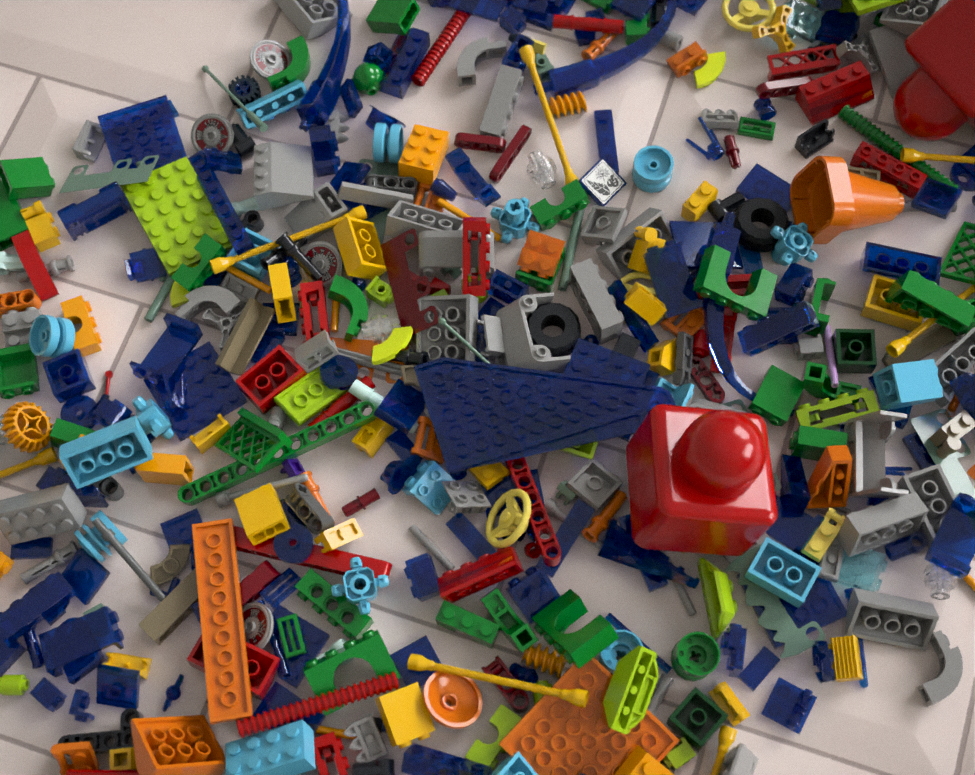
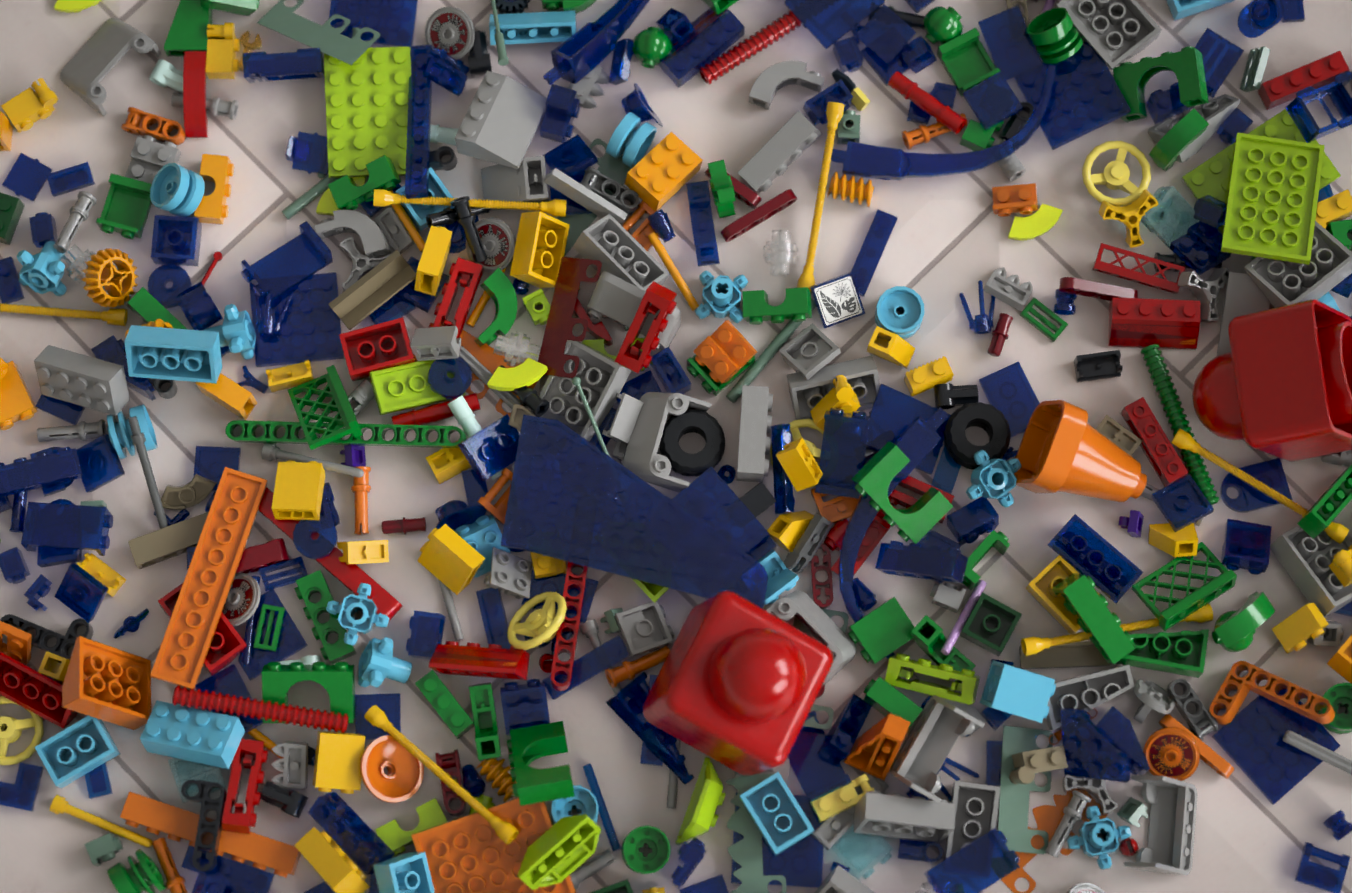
camera: 25 degrees right, 10 degrees up
(62, 229) = (249, 47): none -> clear yellow bar
(189, 453) = (252, 381): none -> clear blue bar
(309, 509) = (348, 509): dark grey piece -> none
(397, 618) = (378, 663): none -> medium azure piece
(412, 506) = (450, 558): none -> yellow brick
(475, 145) = (722, 189): none -> green piece
(659, 195) = (890, 347): none -> yellow slope
(748, 378) = (864, 596): none -> clear blue cone
(908, 232) = (1132, 523): none -> dark purple tile
(941, 229) = (1174, 543): none -> yellow slope

